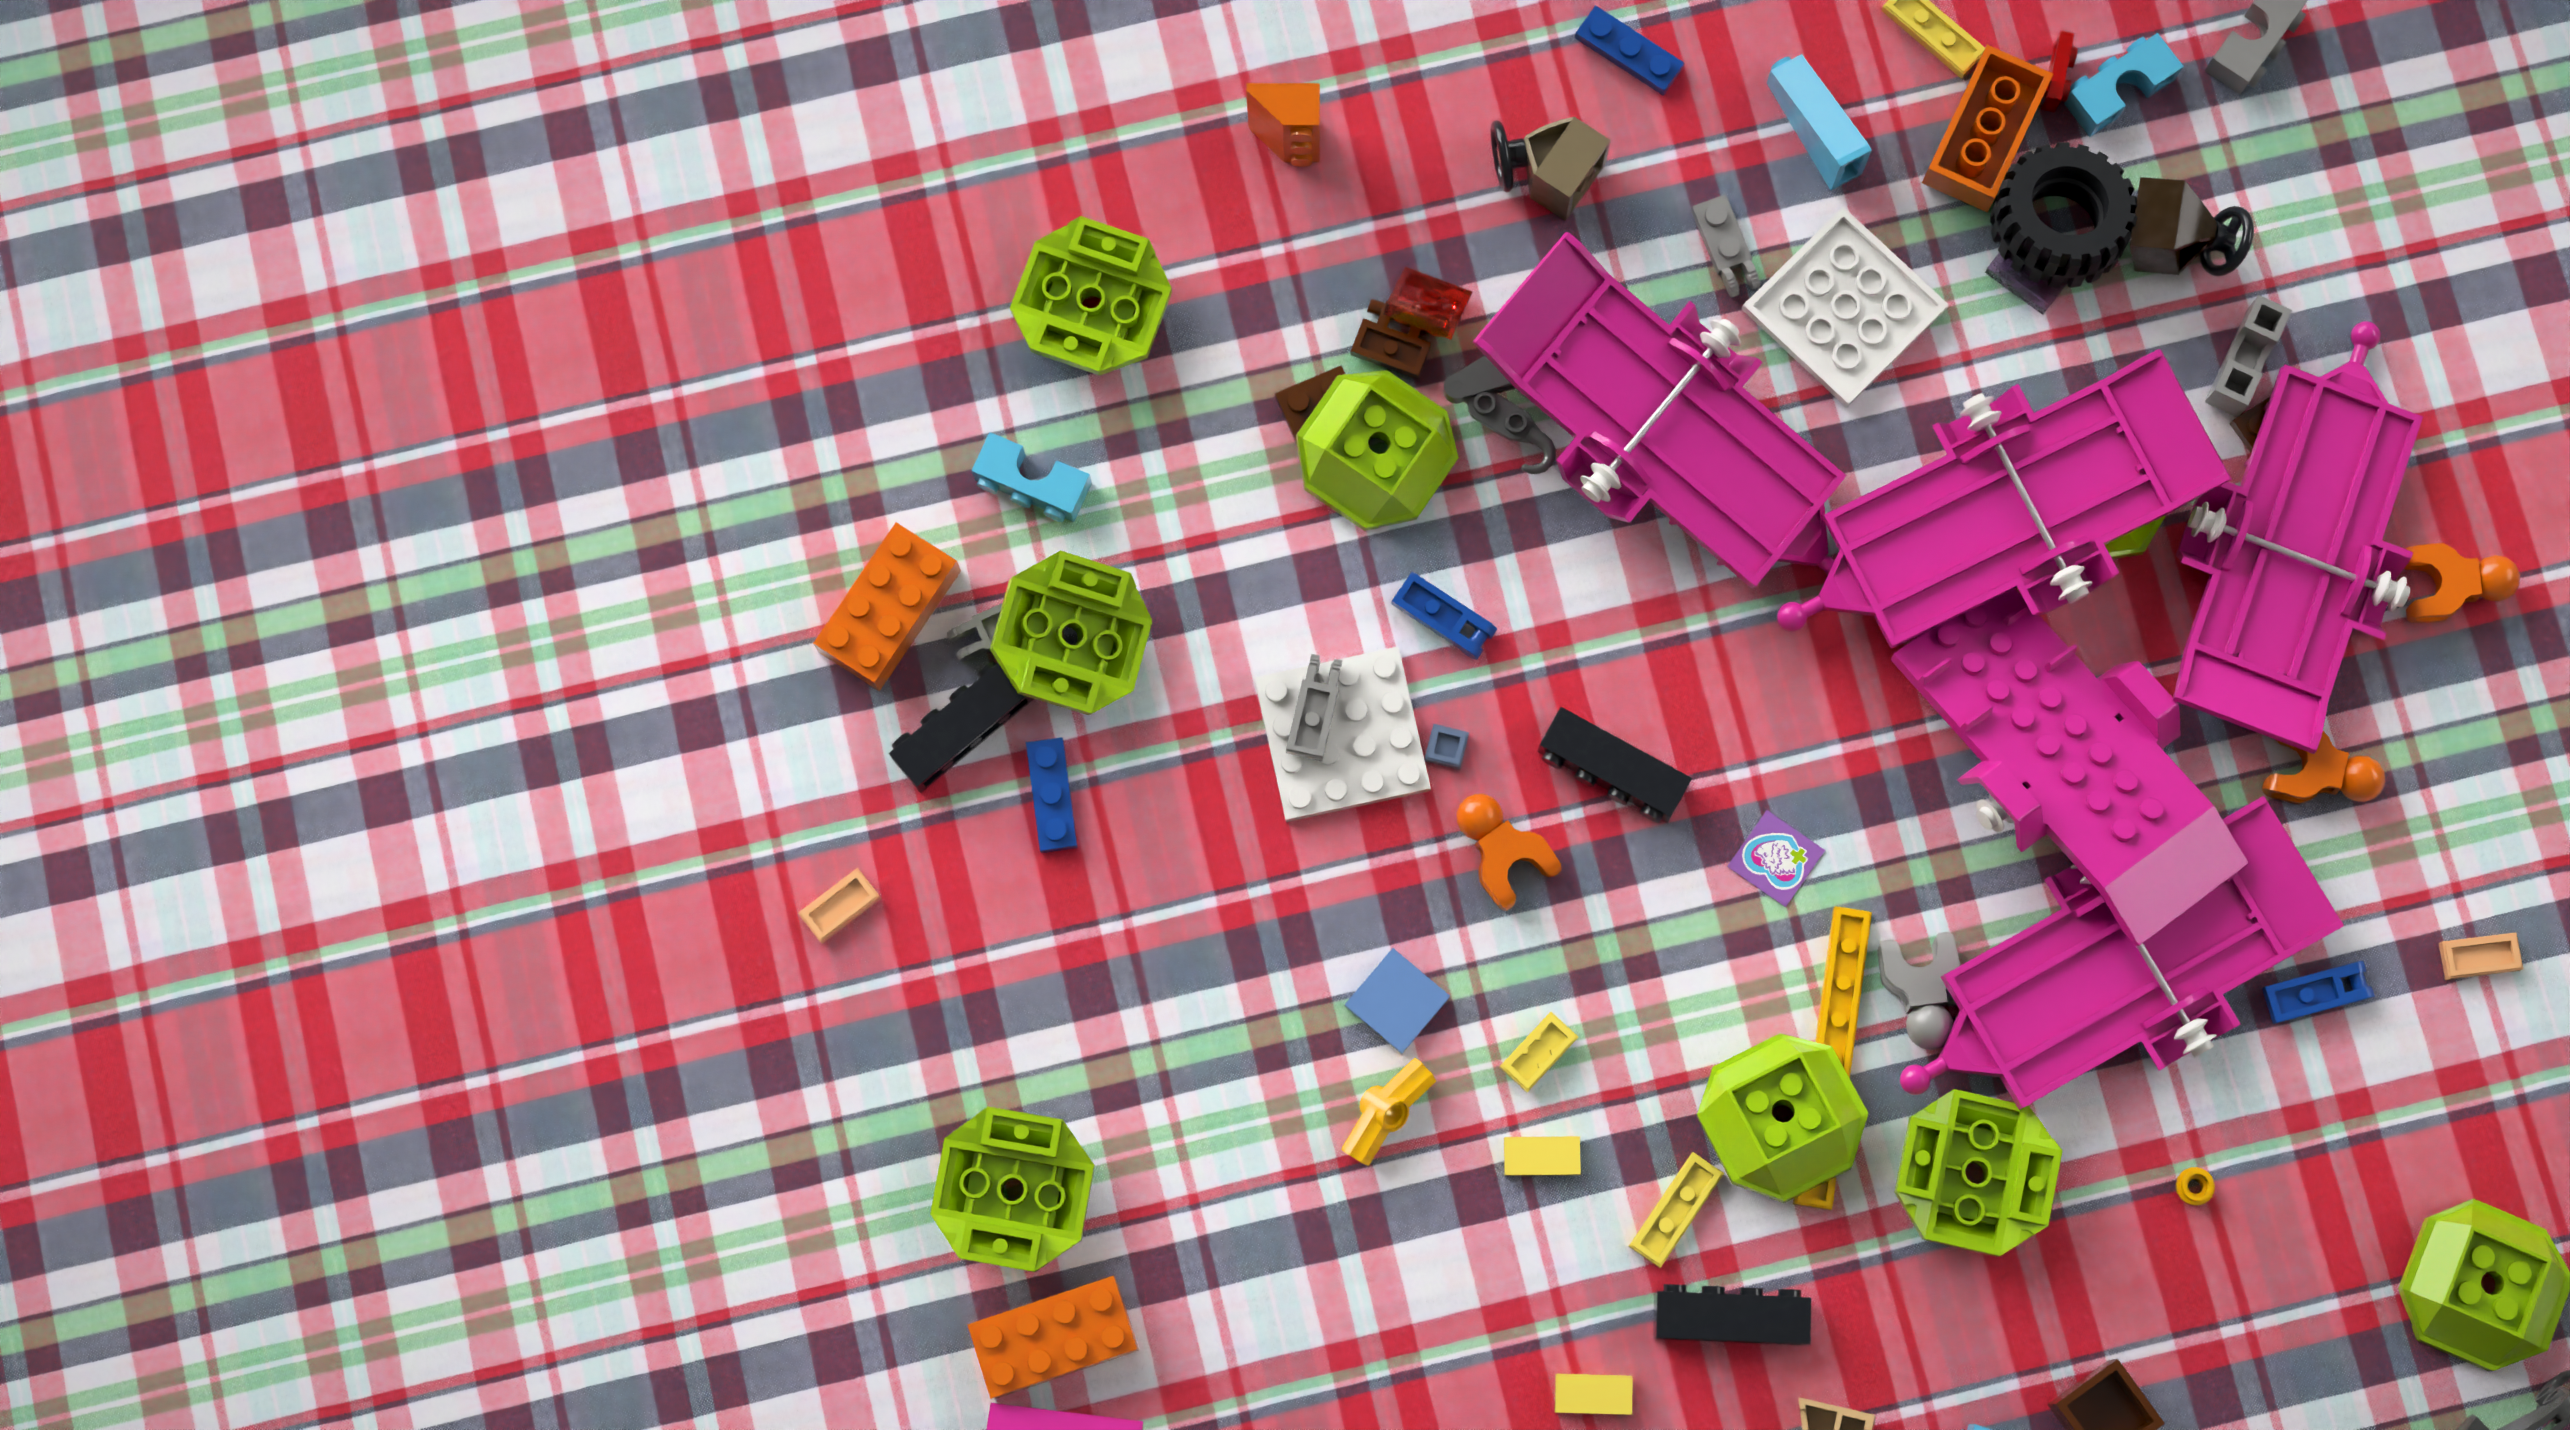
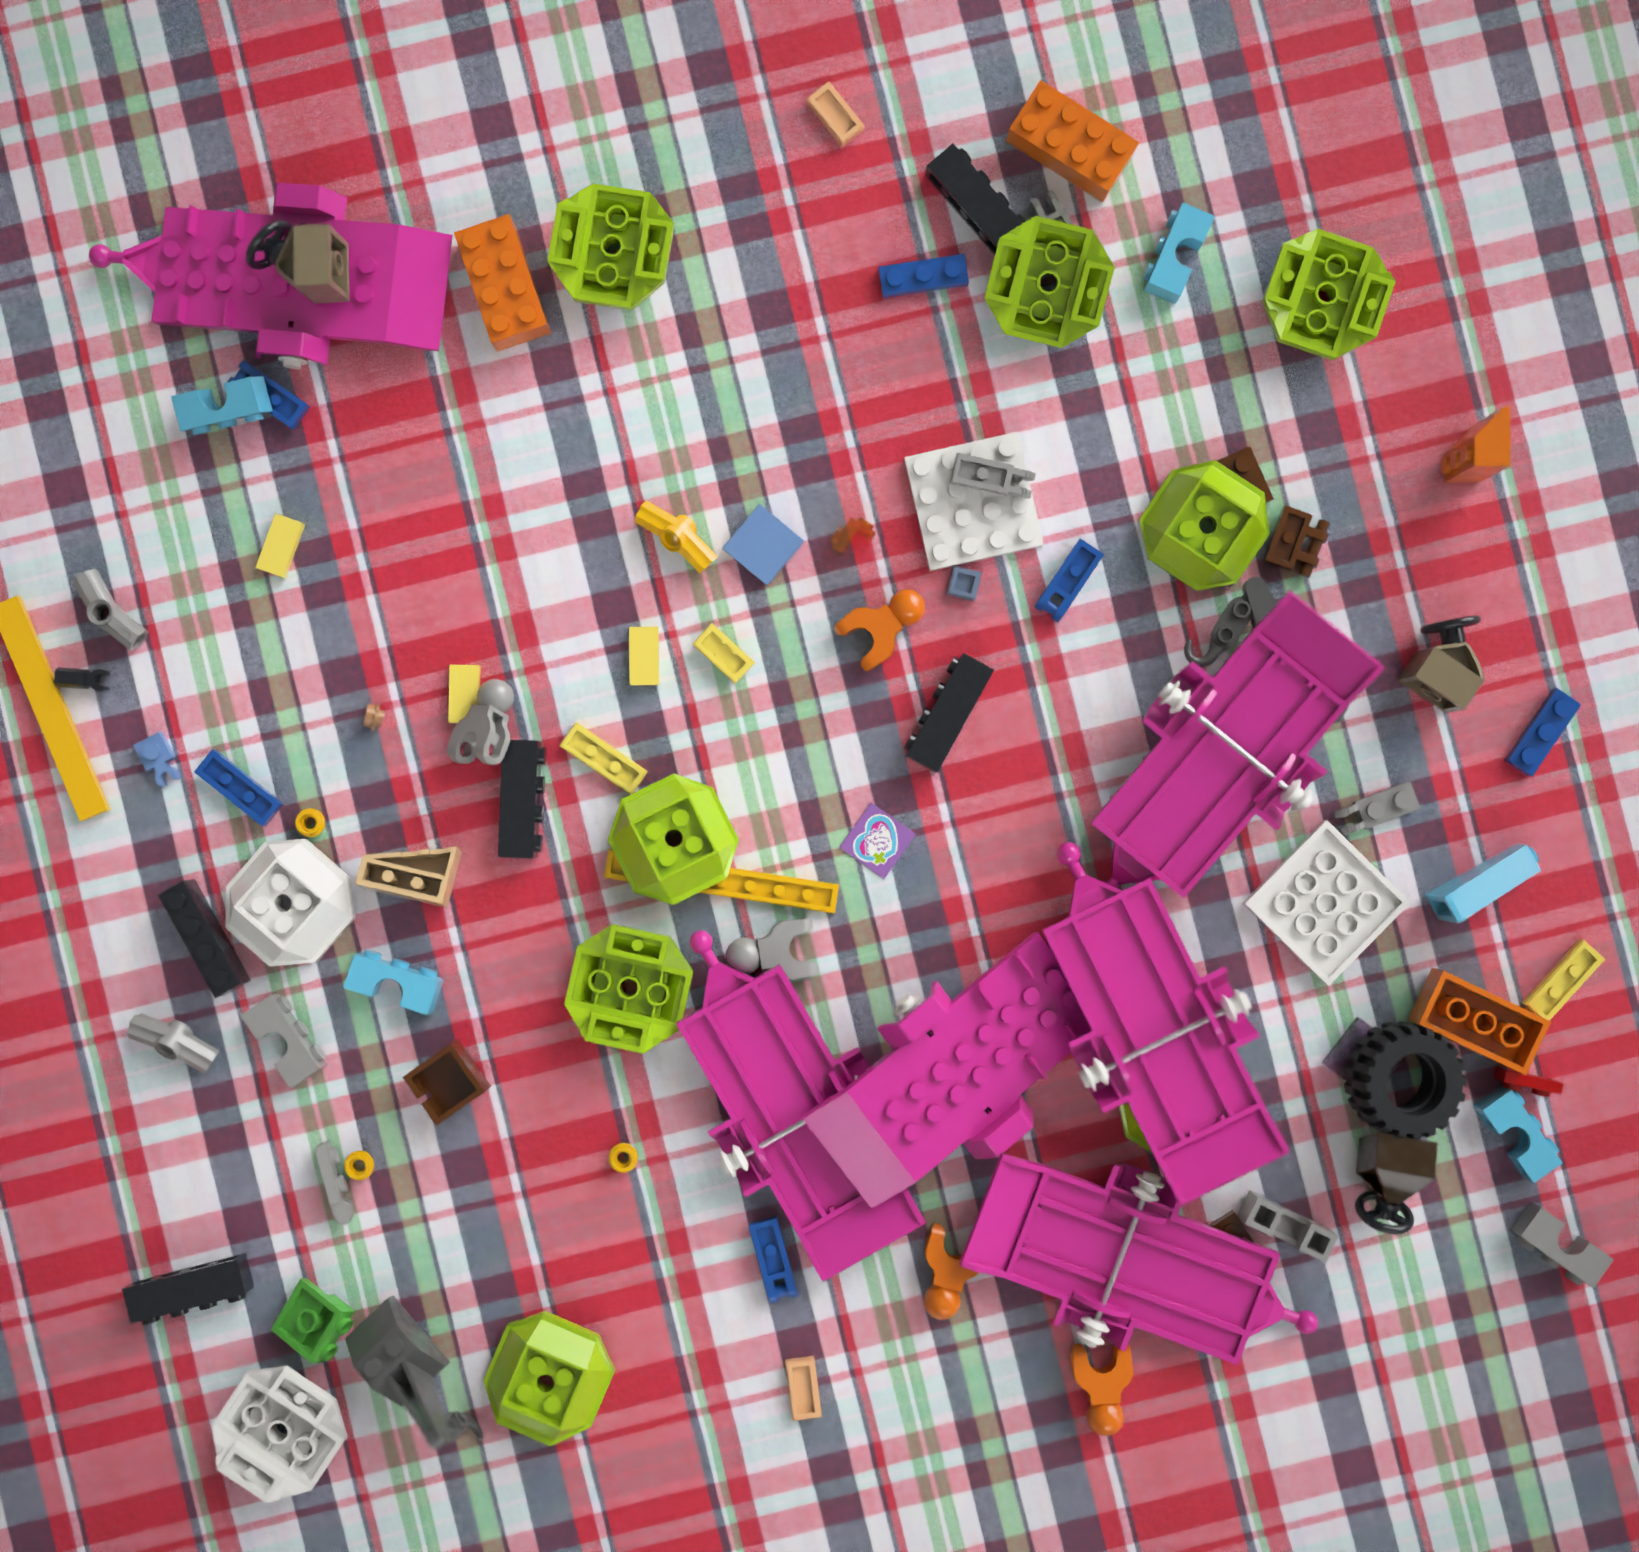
camera: 85 degrees right, 10 degrees up
(1388, 896) = (844, 536): none -> clear orange bracket
(1427, 303) = (1325, 565): clear red plate -> none
(1639, 1362) = (484, 726): none -> light grey piece

